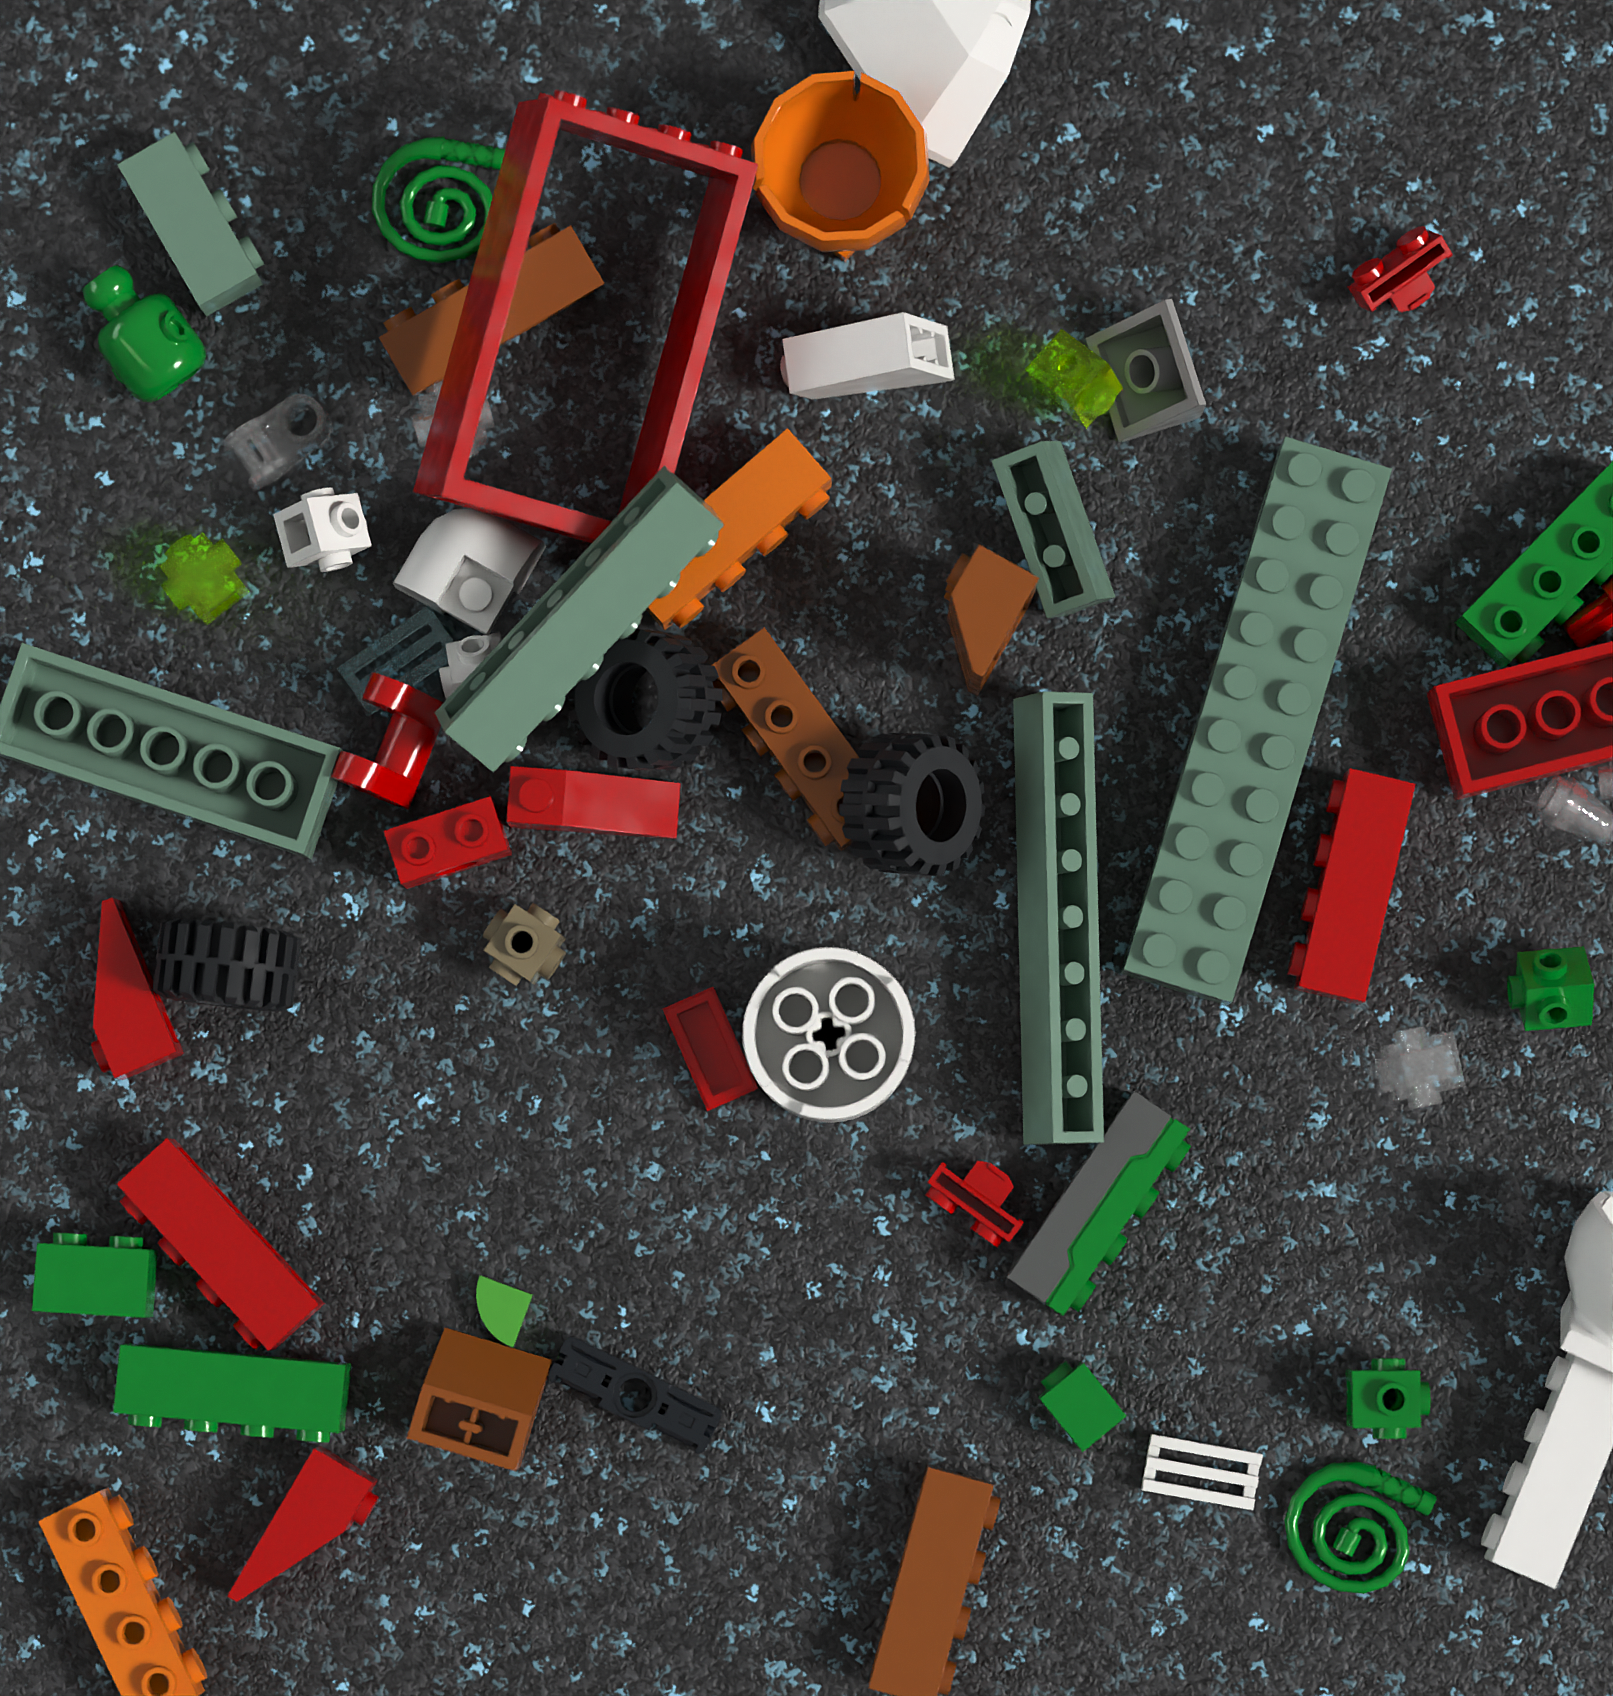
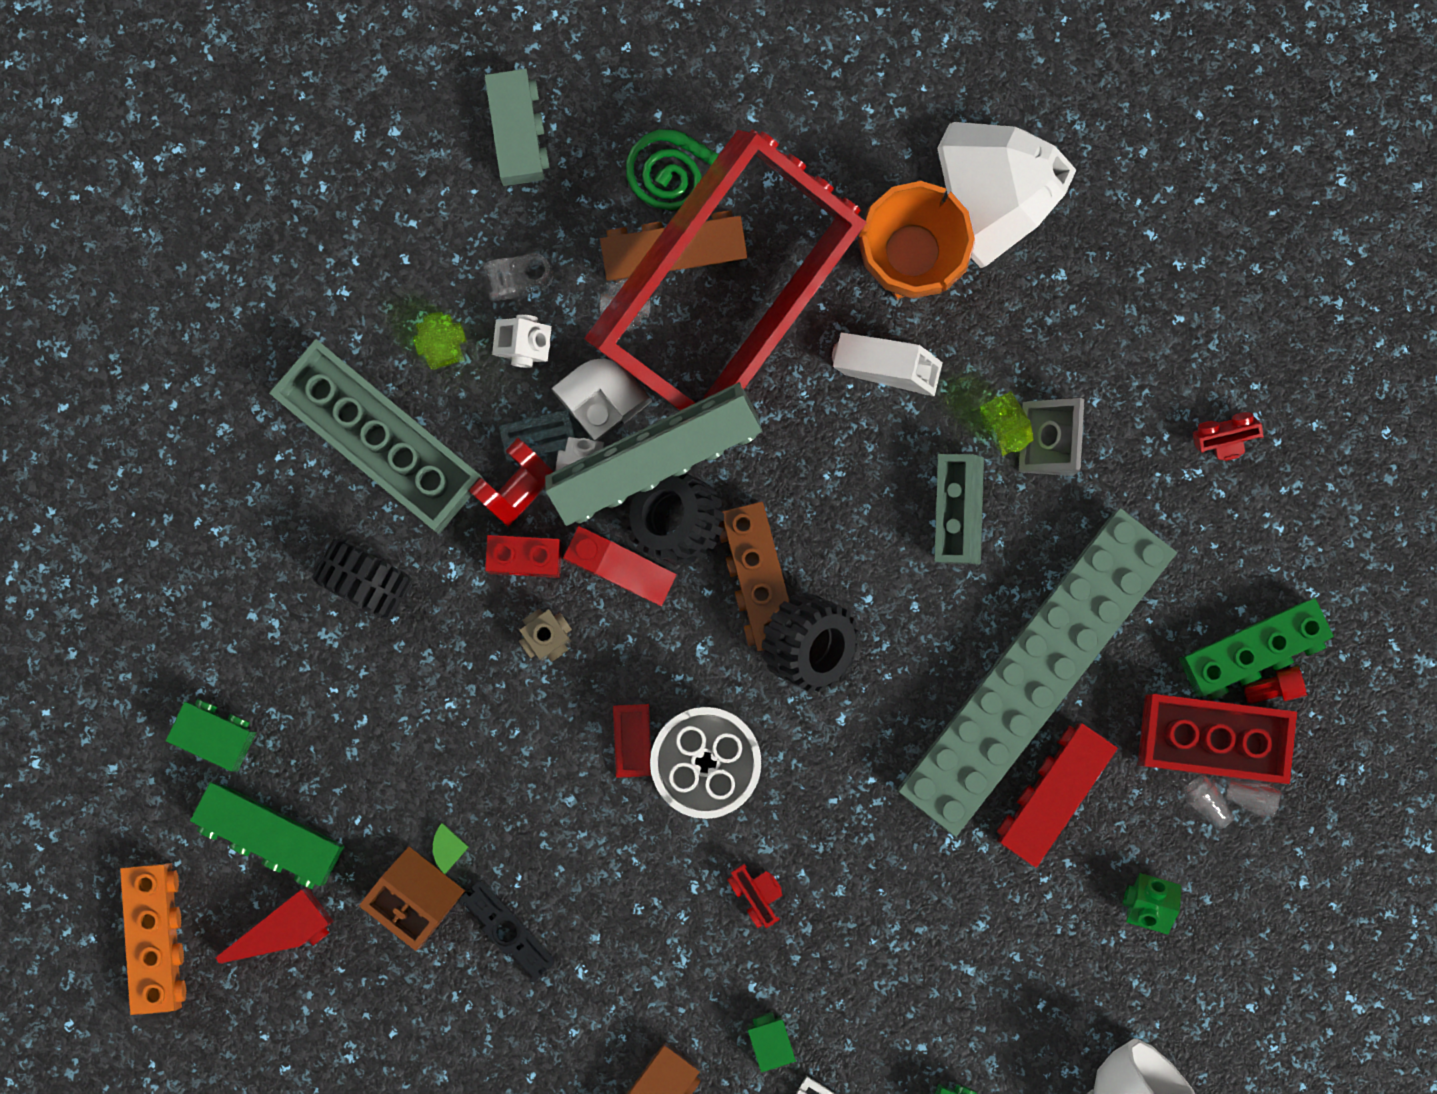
camera: 15 degrees right, 0 degrees up
(128, 1015) = (292, 588): red slope -> none
(144, 338) = (460, 185): green piece -> none
(219, 1244) = (293, 744): red brick -> none
(754, 510) = (783, 429): orange brick -> none
(984, 610) = (899, 541): dark orange slope -> none
(1058, 919) = (871, 745): sand green brick -> none
(1098, 1204) = (828, 926): piece -> none
(1419, 1067) = (1054, 919): clear brick -> none

